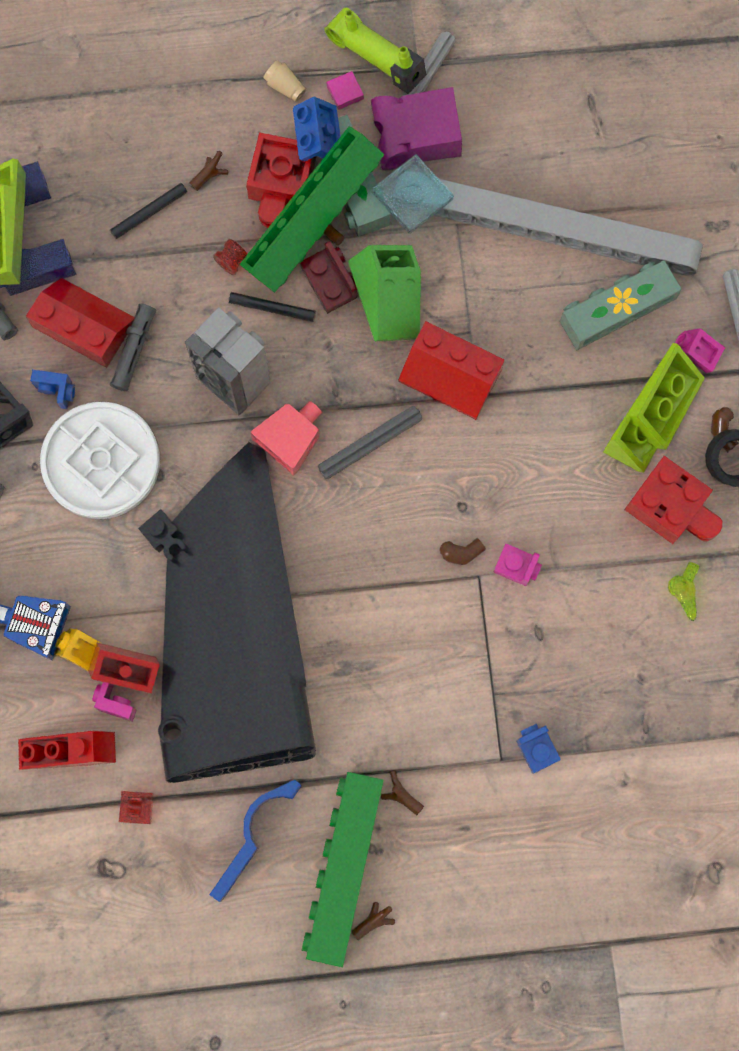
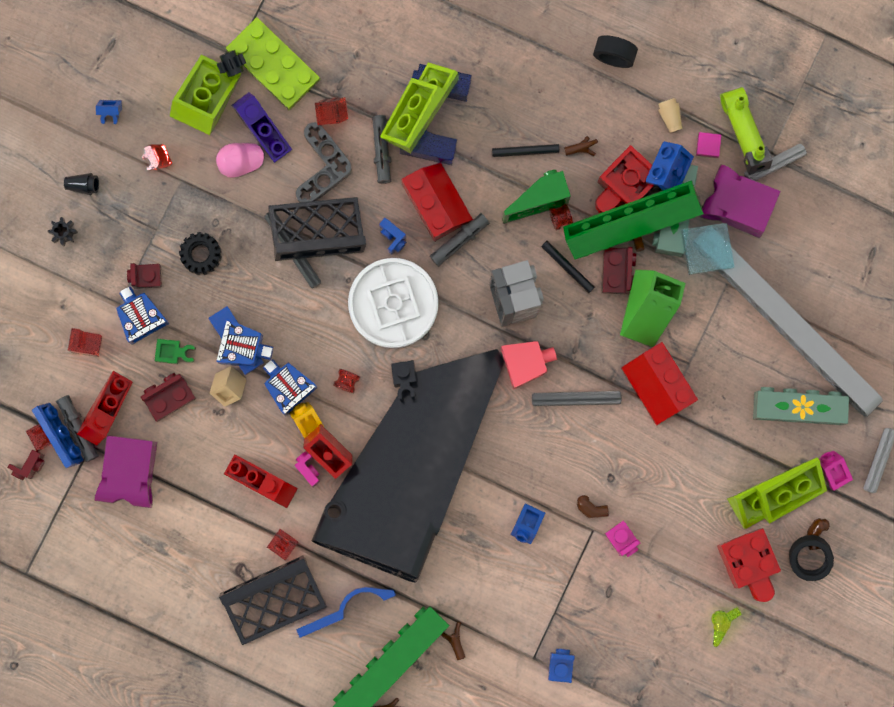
camera: 30 degrees right, 5 degrees up
(98, 577) = (346, 381): none -> clear red wheel
(139, 864) = (259, 585): none -> black fence
(182, 47) = (615, 51): none -> black tyre
(196, 241) = (544, 194): none -> green slope
(401, 612) = (527, 524): none -> blue bracket

